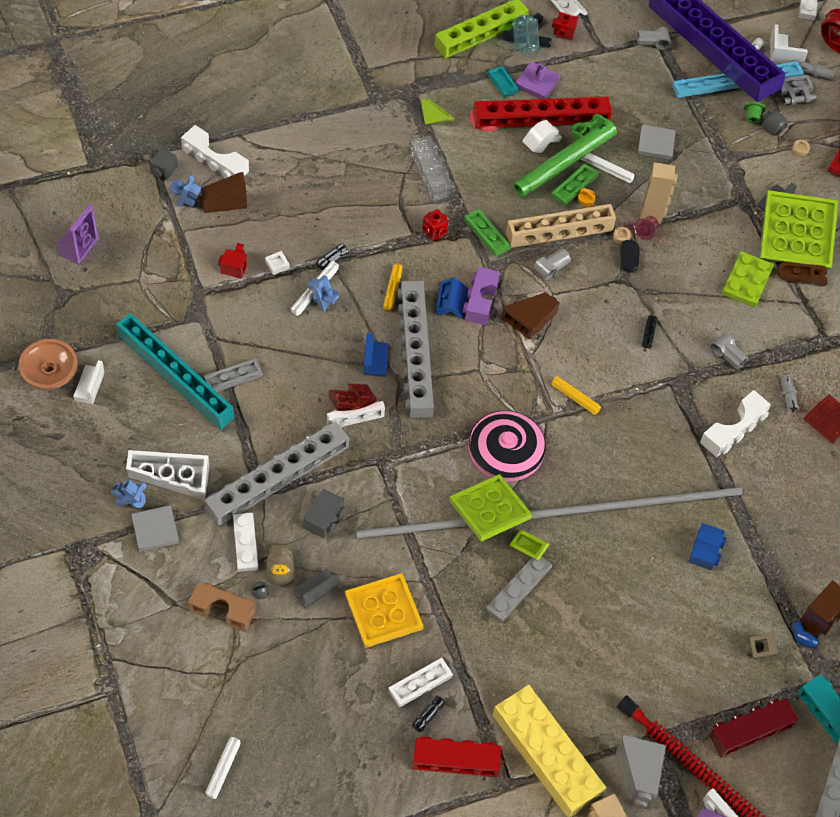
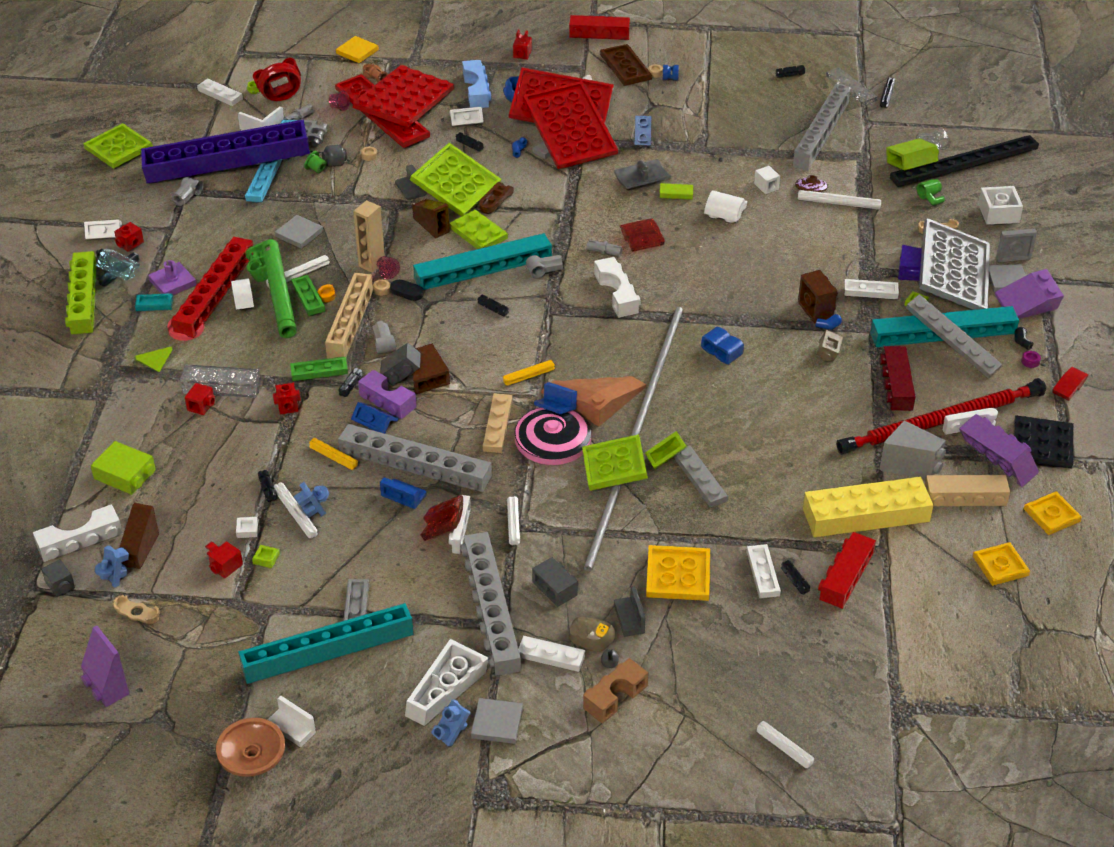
camera: 60 degrees left, 15 degrees down
(159, 220) = (124, 607): none -> tan piece
(255, 290) = (266, 556): none -> lime tile
(298, 150) = (123, 467): none -> lime brick
(383, 454) = (513, 520): none -> white axle
(403, 165) = (199, 399): none -> red brick
(485, 263) = (350, 382): none -> black axle
(498, 395) = (497, 423): none -> tan plate
(517, 289) = (400, 364): none -> dark grey brick
(544, 431) = (557, 398): none -> blue panel
(577, 463) = (602, 397): none -> nougat slope
(702, 299) = (480, 261): none -> teal brick
(735, 233) = (432, 216): none -> reddish brown slope

